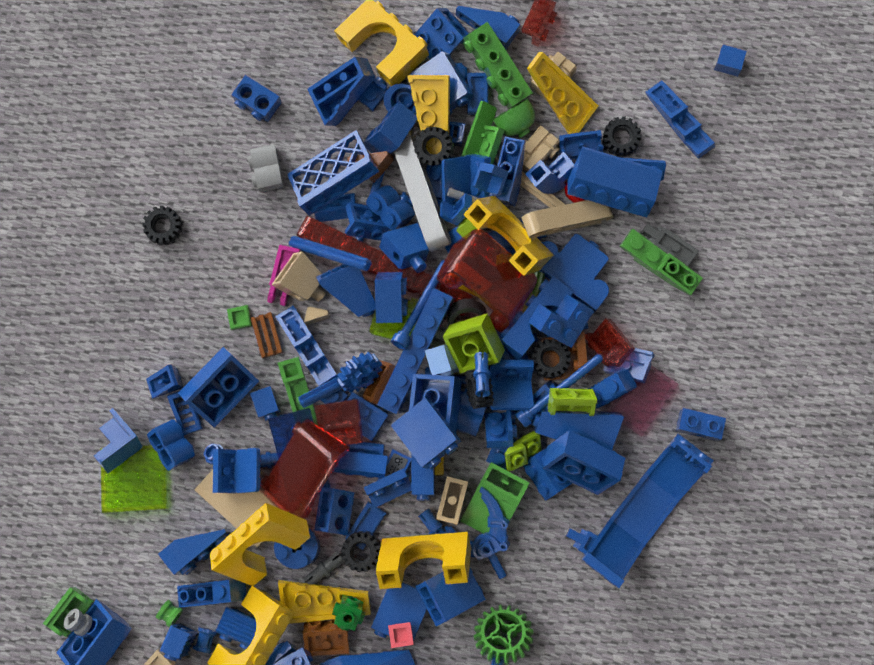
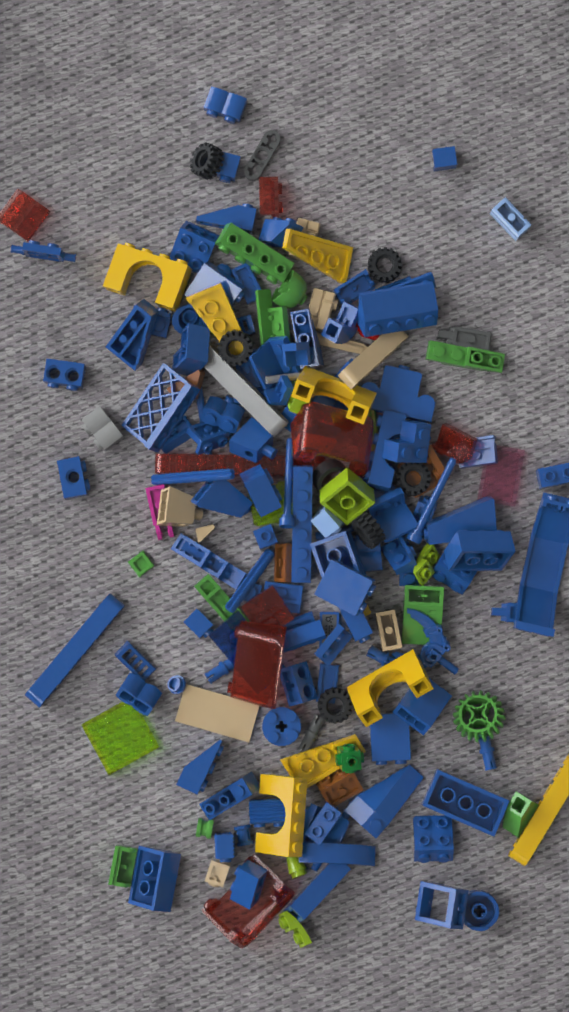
camera: 35 degrees left, 5 degrees up
(78, 622) = (135, 870): light grey wheel -> none
(122, 443) = (98, 711): panel -> none
(128, 371) = (74, 649): none -> blue beam
(162, 213) = (27, 517): black tyre -> none
(164, 381) = (106, 646): blue slope -> none
(213, 190) = (66, 468): none -> blue brick
(218, 387) = (155, 629): blue brick -> none
(236, 470) = (204, 689): blue bracket -> none
(261, 318) = (160, 555): dark orange tile -> none
(266, 524) = (254, 719): yellow arch -> none
(359, 372) = (265, 563): blue gear -> none
(374, 345) = (265, 537): none -> blue brick
(401, 635) = (399, 755): coral plate -> none
(482, 374) = (367, 519): blue pin -> none
(527, 51) = (274, 230): none -> blue slope
(572, 400) = (446, 505): lime hinge -> none
(613, 387) = (472, 481): blue brick -> none
(679, 119) = (425, 228): blue slope -> none
(770, 147) = (510, 219): none -> light blue brick

